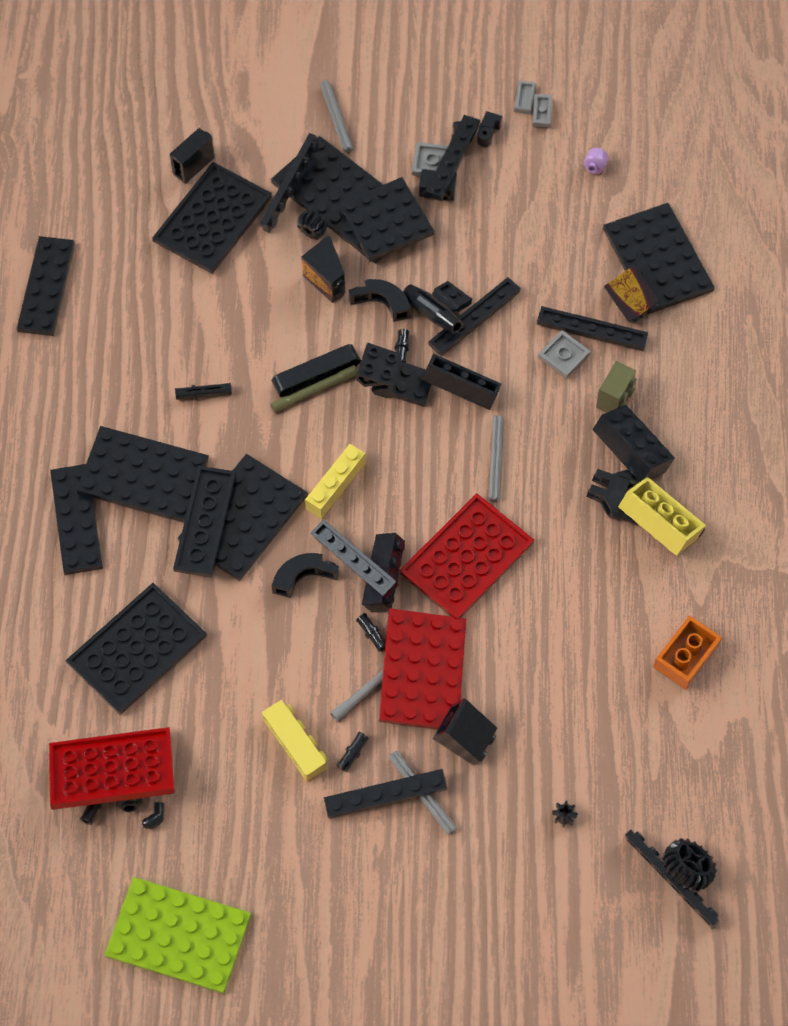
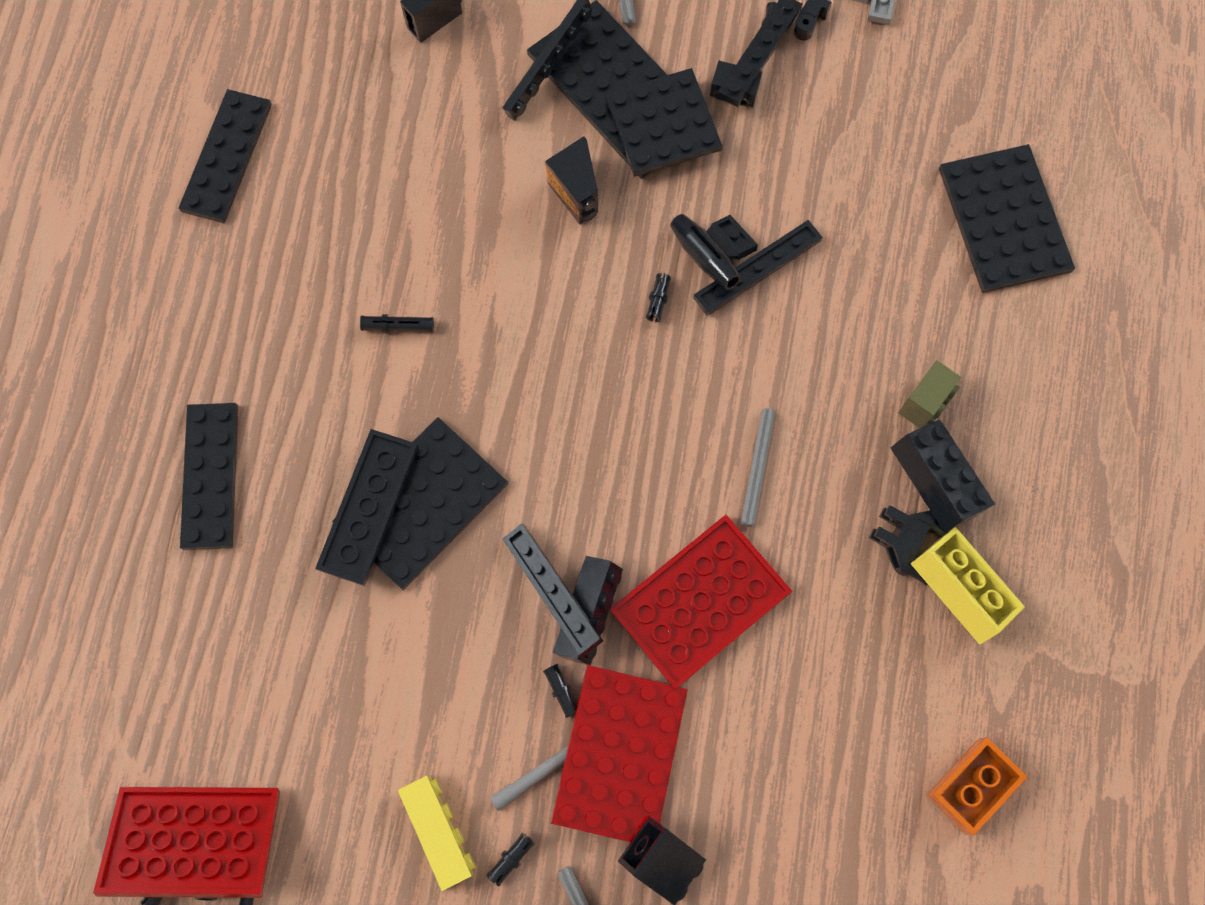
camera: 10 degrees right, 10 degrees up
(136, 648) = (253, 669): black plate -> none
(140, 473) = (298, 426): black plate -> none
(212, 217) = (445, 91): black plate -> none
(287, 401) = (575, 327): olive piece -> none
(300, 567) = (477, 586): black arch -> none
(312, 224) = (568, 117): black gear -> none
(315, 370) = (544, 315): black beam -> none
(335, 481) = (545, 472): light yellow brick -> none
(385, 293) = (647, 221): black arch -> none
(391, 376) = (641, 338): black piece -> none
(427, 157) = (728, 45): light grey plate -> none
(461, 381) = (728, 358): black brick -> none
(564, 354) = (866, 335): light grey plate -> none
(592, 328) = (908, 304): black plate -> none
(596, 161) = (943, 77): lavender head -> none
(632, 294) = (967, 265): slope -> none

